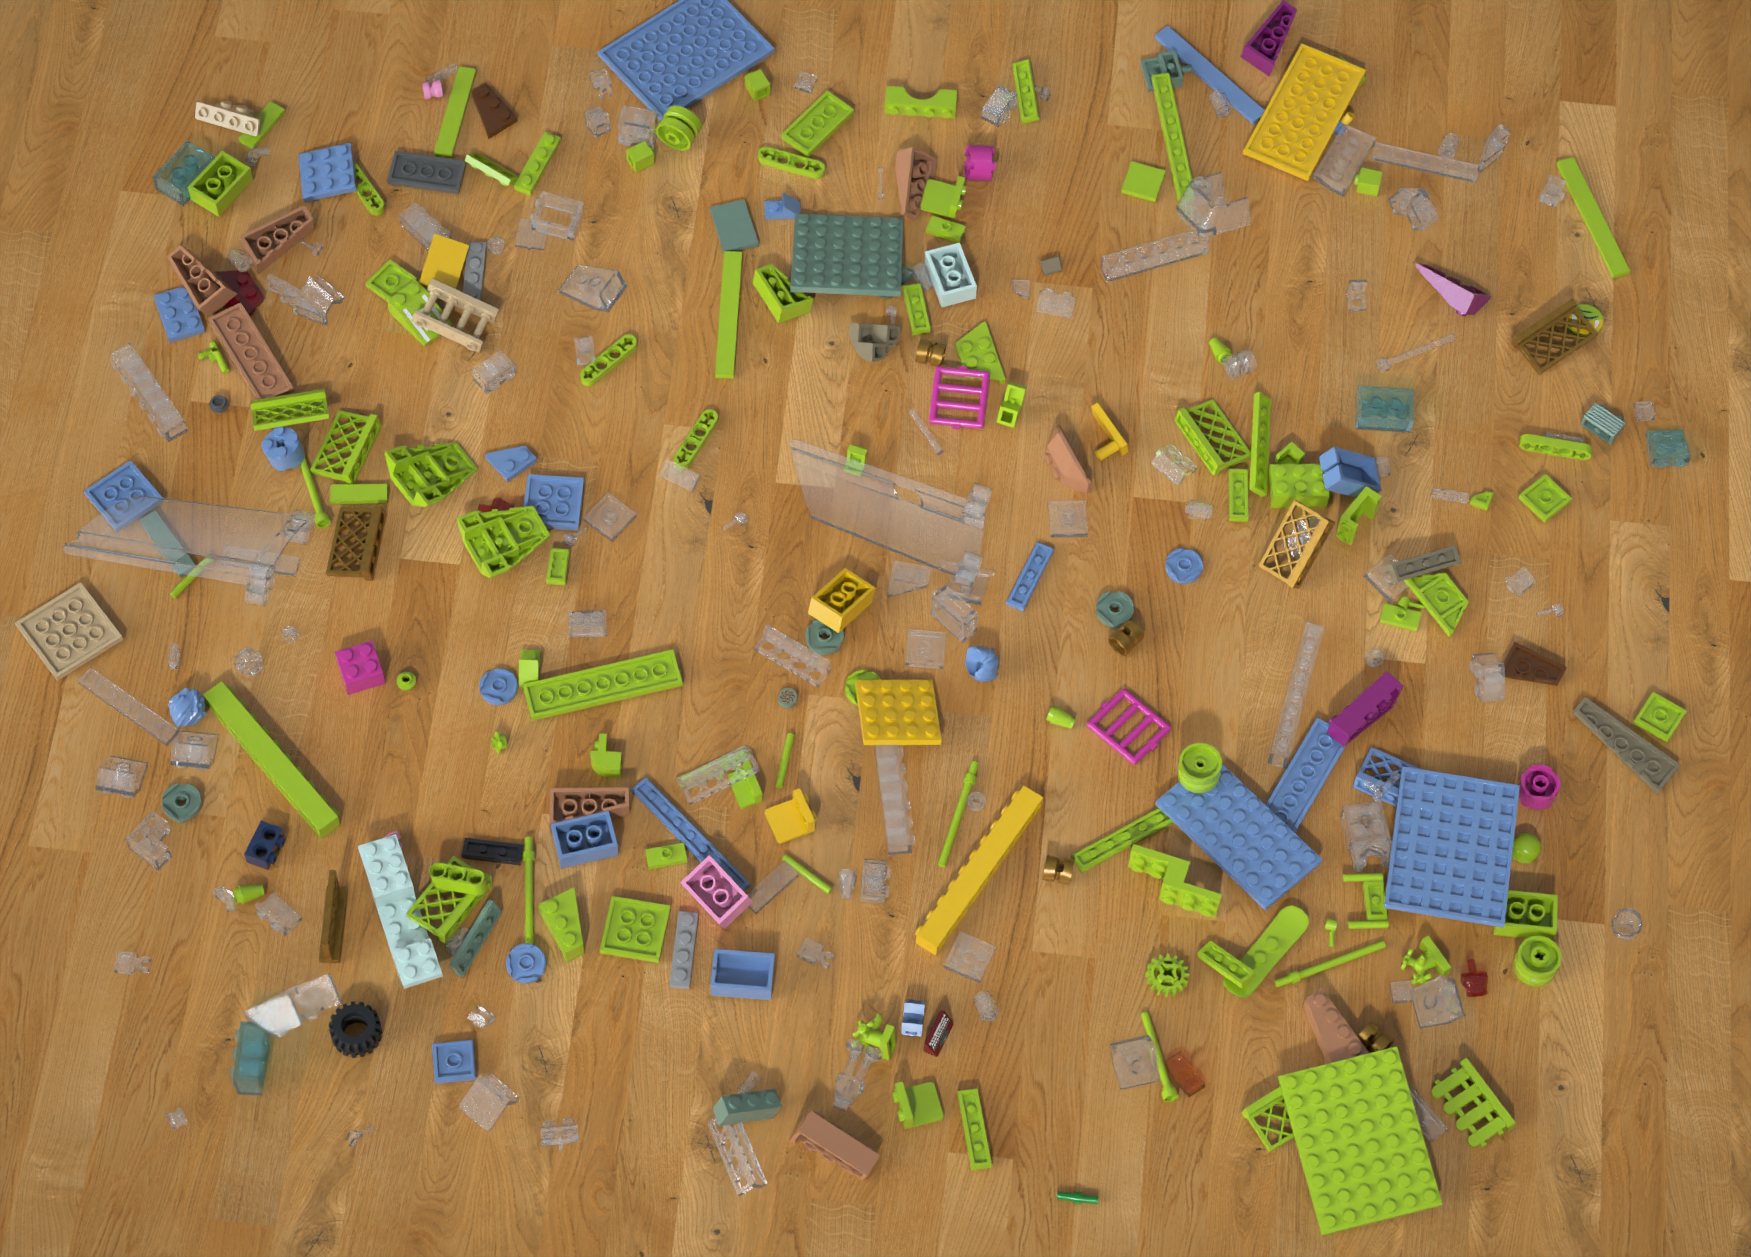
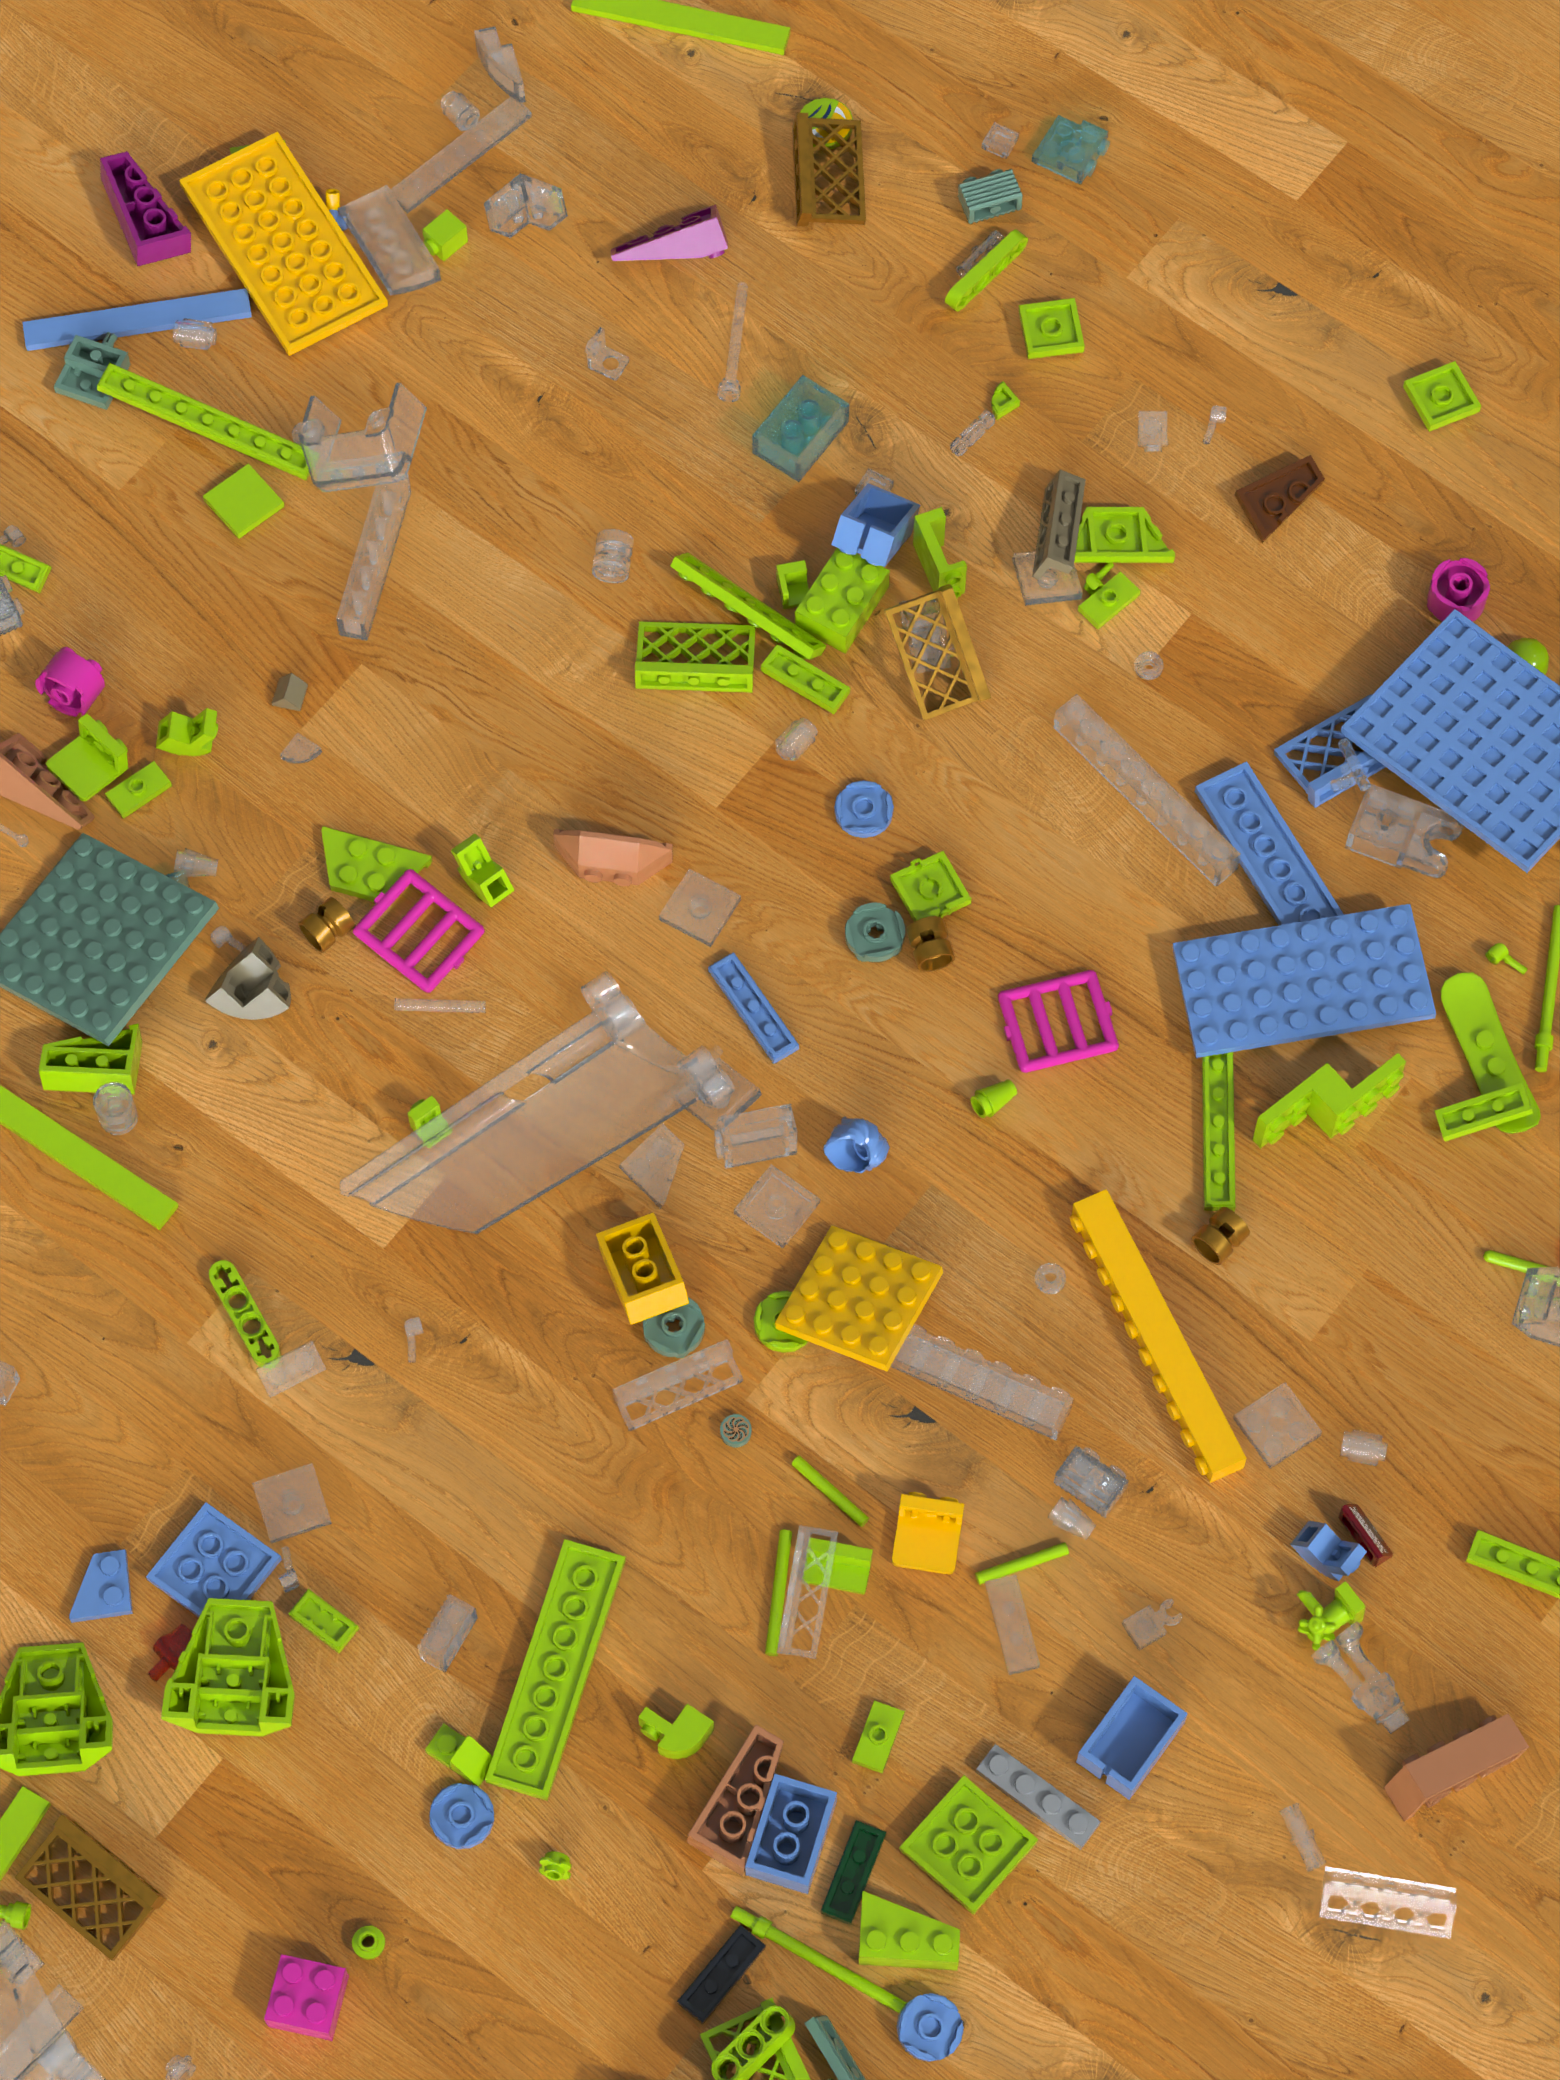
camera: 55 degrees left, 5 degrees up
(588, 883) = (853, 1872): none -> dark green tile
(607, 359) = (35, 1356): lime beam -> none
(684, 829) = (868, 1685): medium blue tile -> none
(716, 892) = (987, 1699): bright pink brick -> none
(747, 1107) = (1340, 1848): sand green brick -> none
(763, 317) = (115, 1108): none -> clear wheel
(916, 309) = (244, 902): lime plate -> none
(917, 1104) = (1455, 1620): lime bracket -> none
(950, 275) = (222, 825): light aqua brick -> none
(969, 781) = (1013, 1269): lime bar -> none
(990, 231) = (187, 735): none -> lime brick
(1056, 304) = (358, 722): clear bracket -> none
(1117, 443) = (625, 774): yellow piece -> none
(1160, 622) = (930, 887): none -> lime plate
(1167, 966) = (1444, 1203): lime gear -> none
(1173, 463) = (705, 728): clear bracket -> none
(1199, 768) = (1196, 968): lime wheel -> none
(1219, 349) = (573, 567): lime cone -> none
(1365, 710) = (1227, 721): magenta wedge -> none
(1374, 900) = (1494, 881): lime plate -> none
(1490, 676) = (1267, 545): clear brick -> none
(1553, 191) = (613, 37): clear brick -> none
(1638, 754) = (1474, 453): dark tan wing -> none

